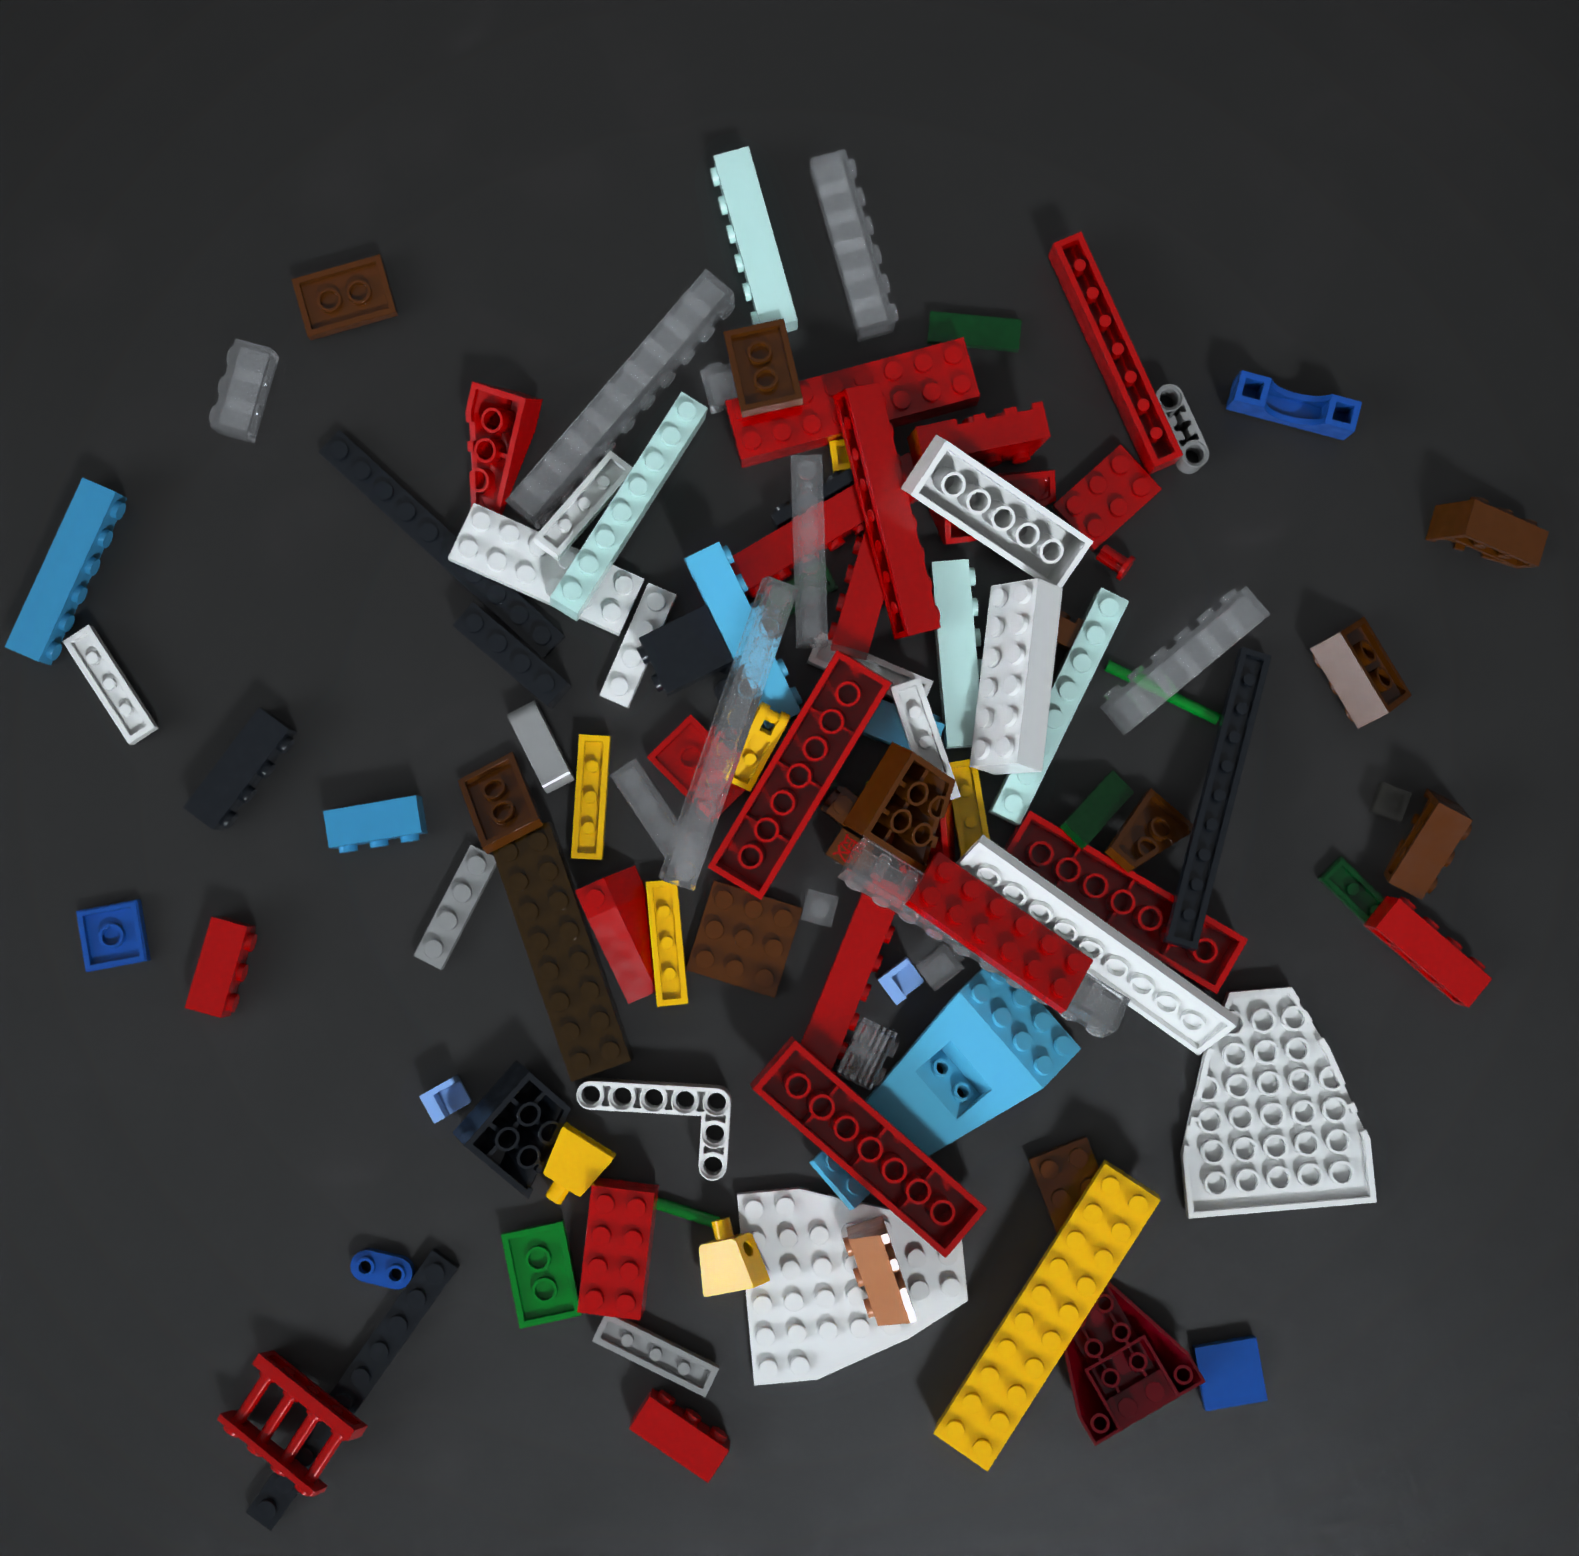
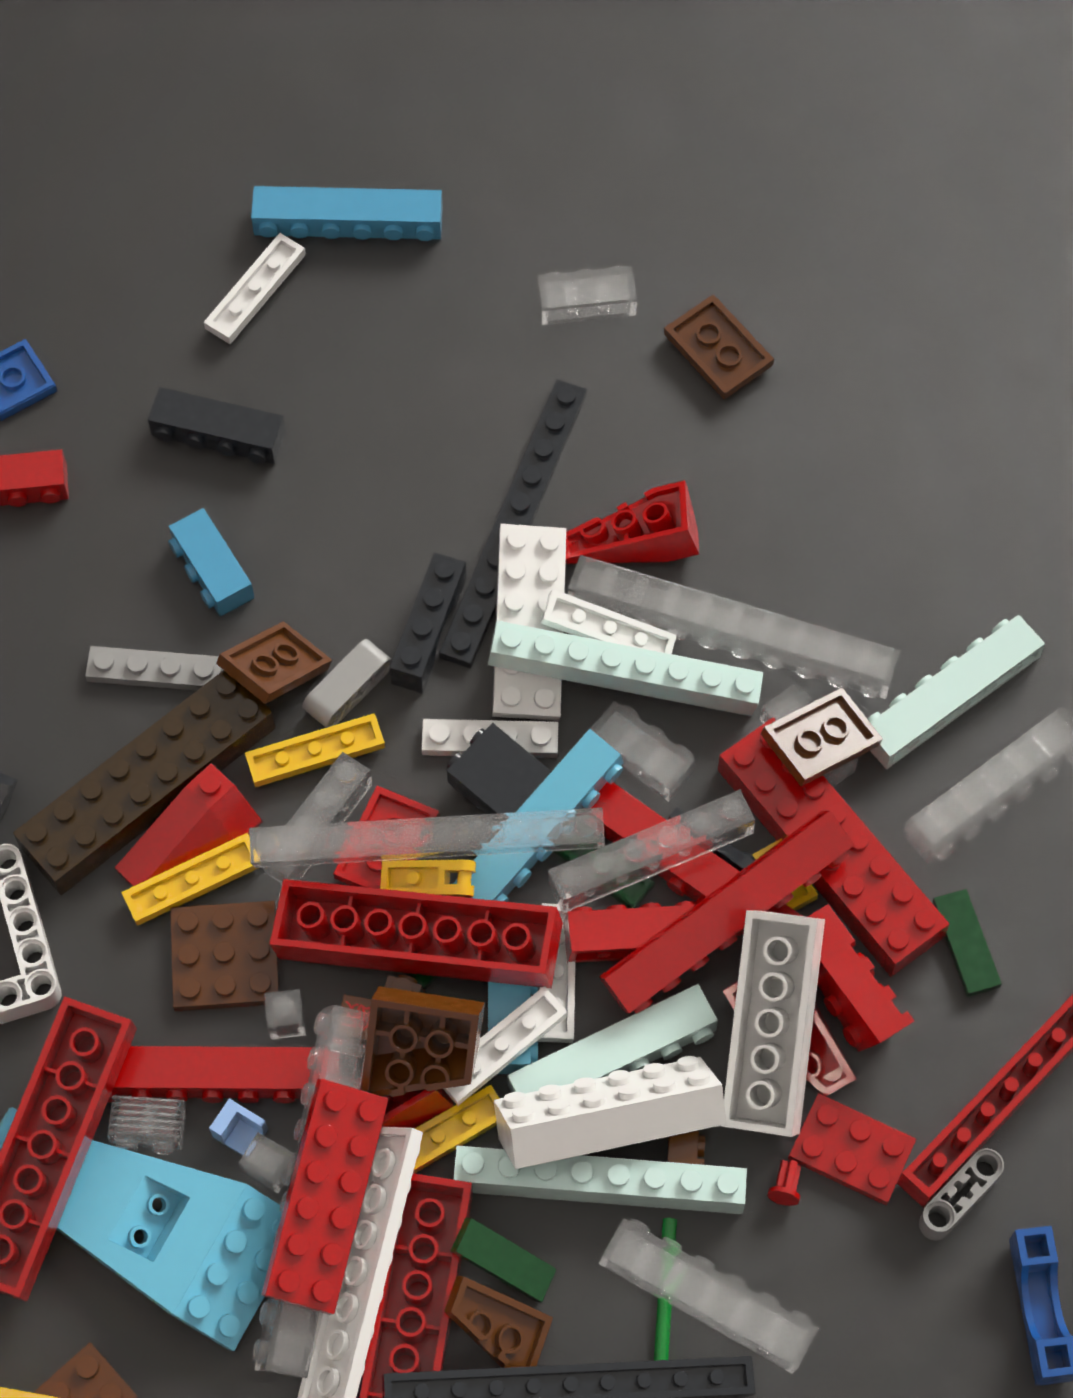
camera: 70 degrees right, 20 degrees down
(703, 522) = (645, 750): none -> clear brick

